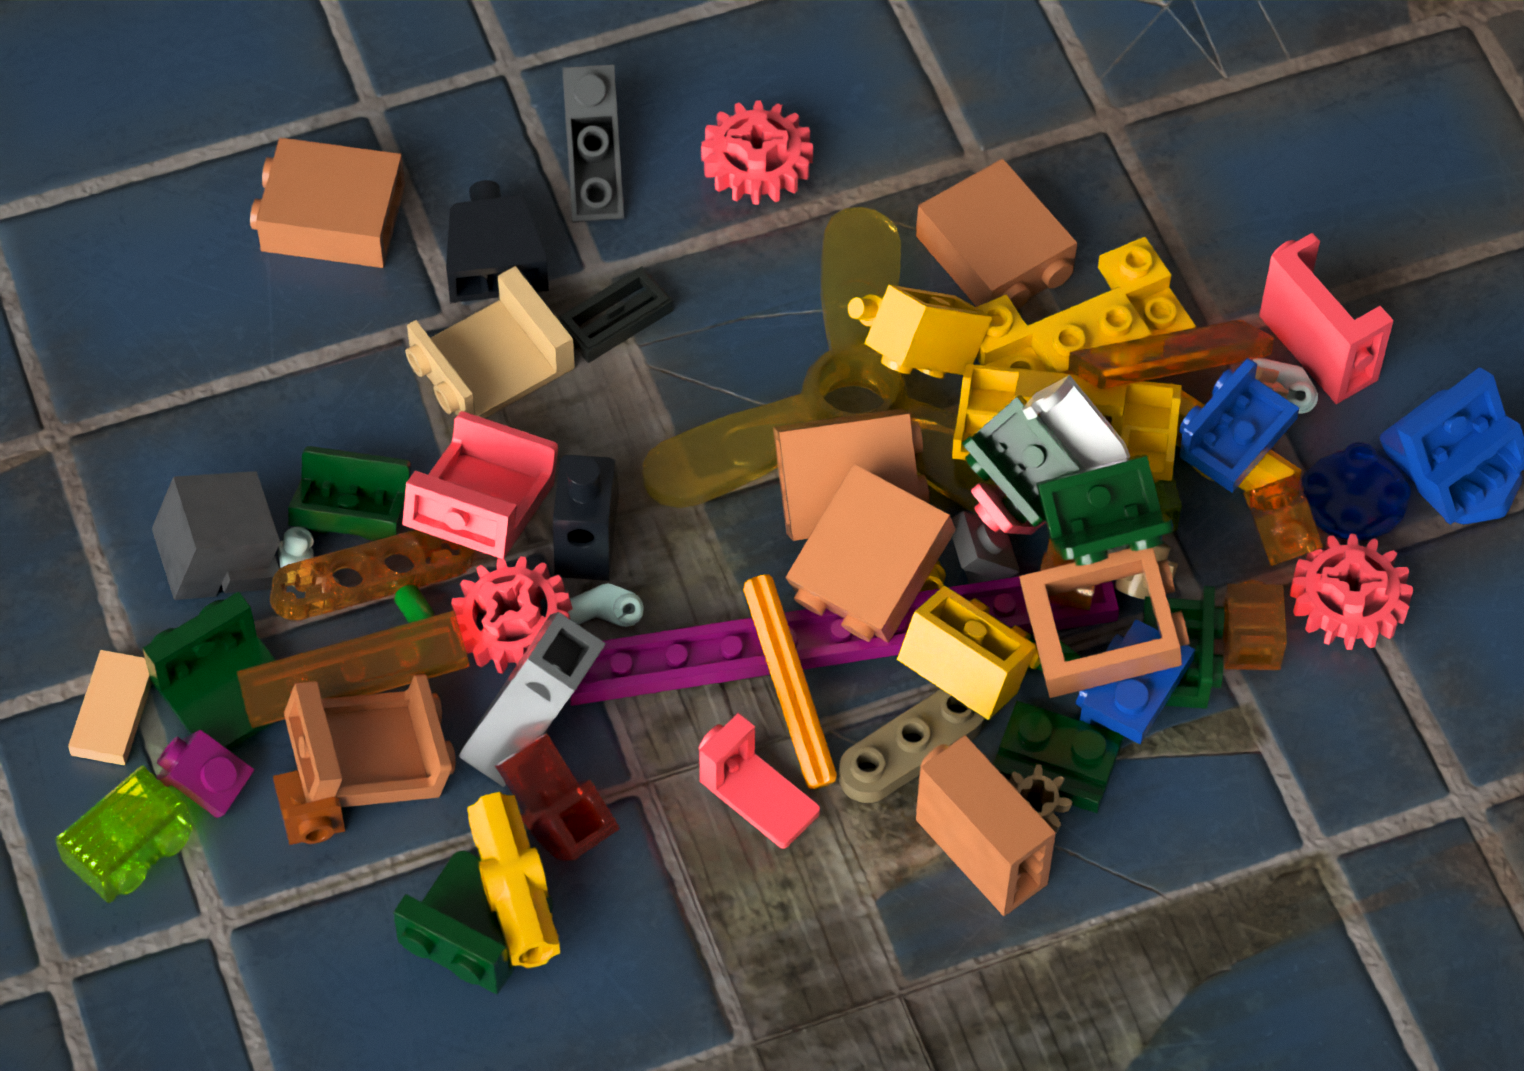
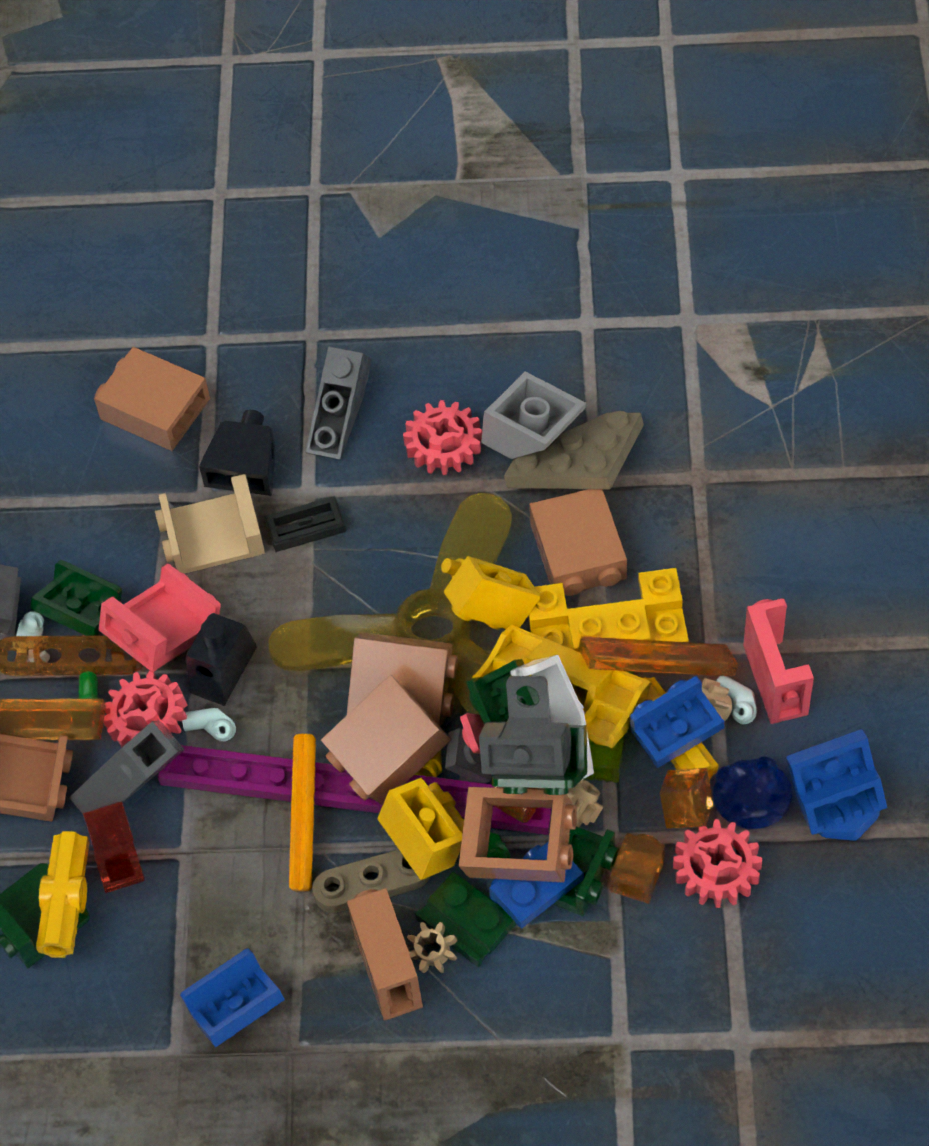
camera: 25 degrees right, 0 degrees up
(752, 785) = (251, 875): coral bracket -> none
(799, 945) = (231, 997): none -> blue bracket
(871, 95) = (528, 417): none -> light grey slope
(950, 131) = (580, 457): none -> dark tan plate
(1081, 490) = (528, 739): none -> dark grey piece

